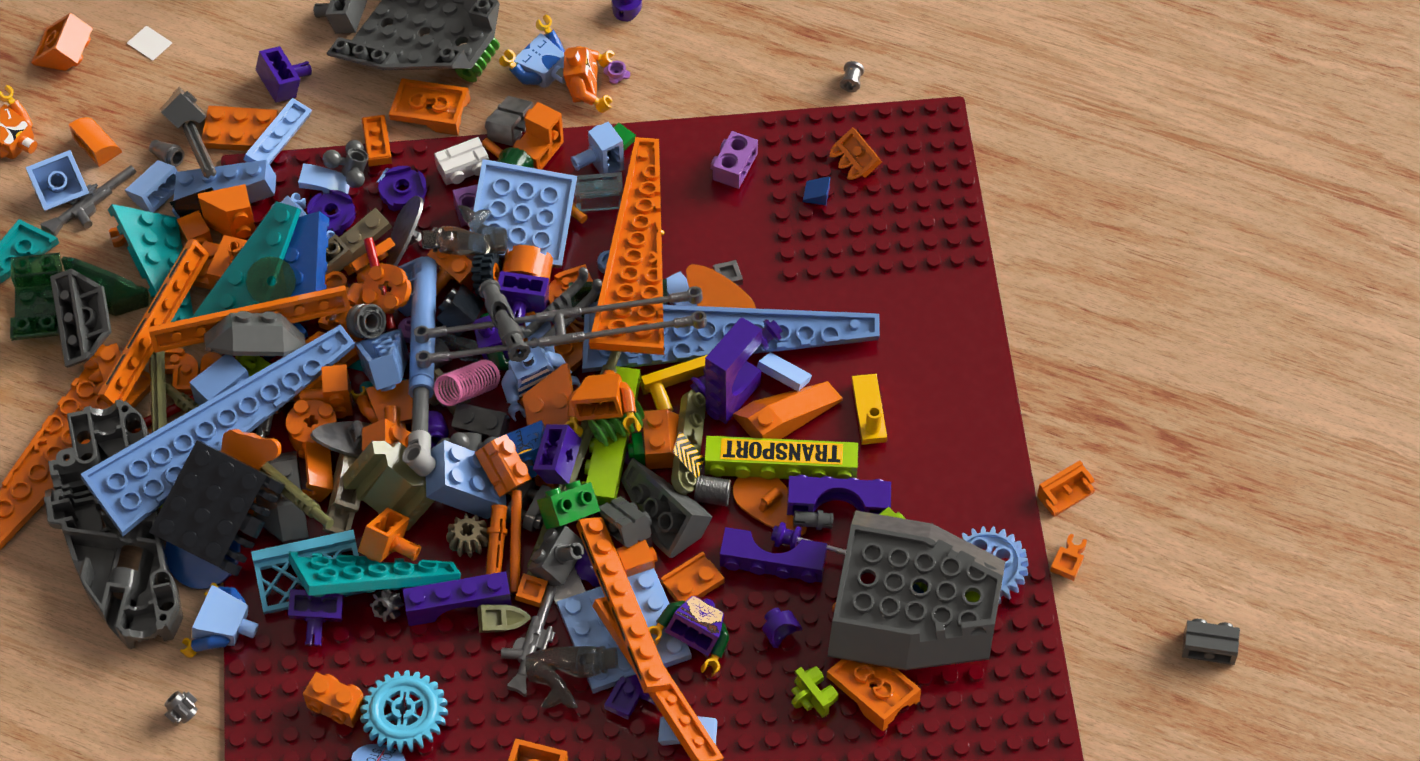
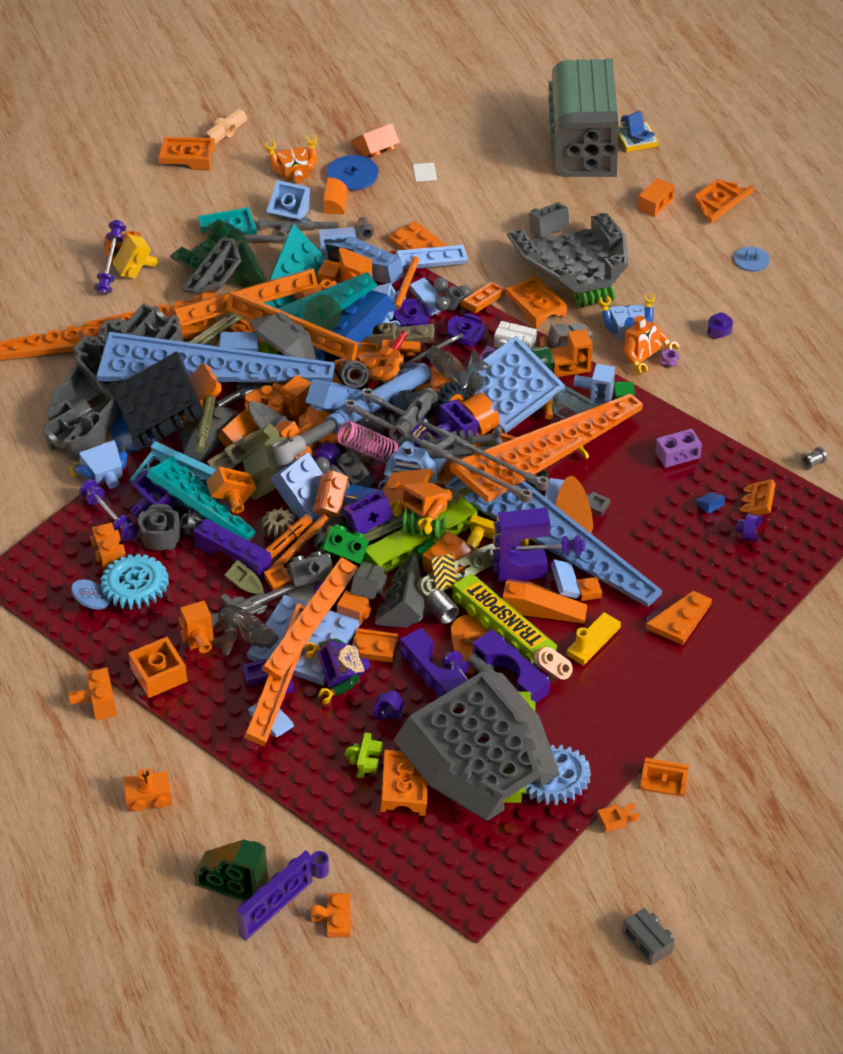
camera: 45 degrees right, 10 degrees down
(78, 239) = (265, 238): none -> flat silver bar
(88, 86) = (354, 171): none -> blue piece
(180, 707) = (33, 492): flat silver gear -> none
(182, 108) = (397, 209): dark grey brick -> none
(199, 149) = (376, 232): dark grey axle -> none
(239, 656) = (95, 495): none -> dark purple axle
(279, 75) = (470, 229): dark purple brick -> none
(291, 180) = (406, 282): none -> orange bar
(362, 636) = (159, 527): none -> dark grey brick
(524, 704) = (196, 626): none -> orange brick
(812, 363) = (589, 589): none -> orange plate
(871, 462) = (554, 664): none -> light nougat plate
(882, 191) = (748, 527): none -> dark purple piece
(918, 326) = (681, 618): none -> orange wing

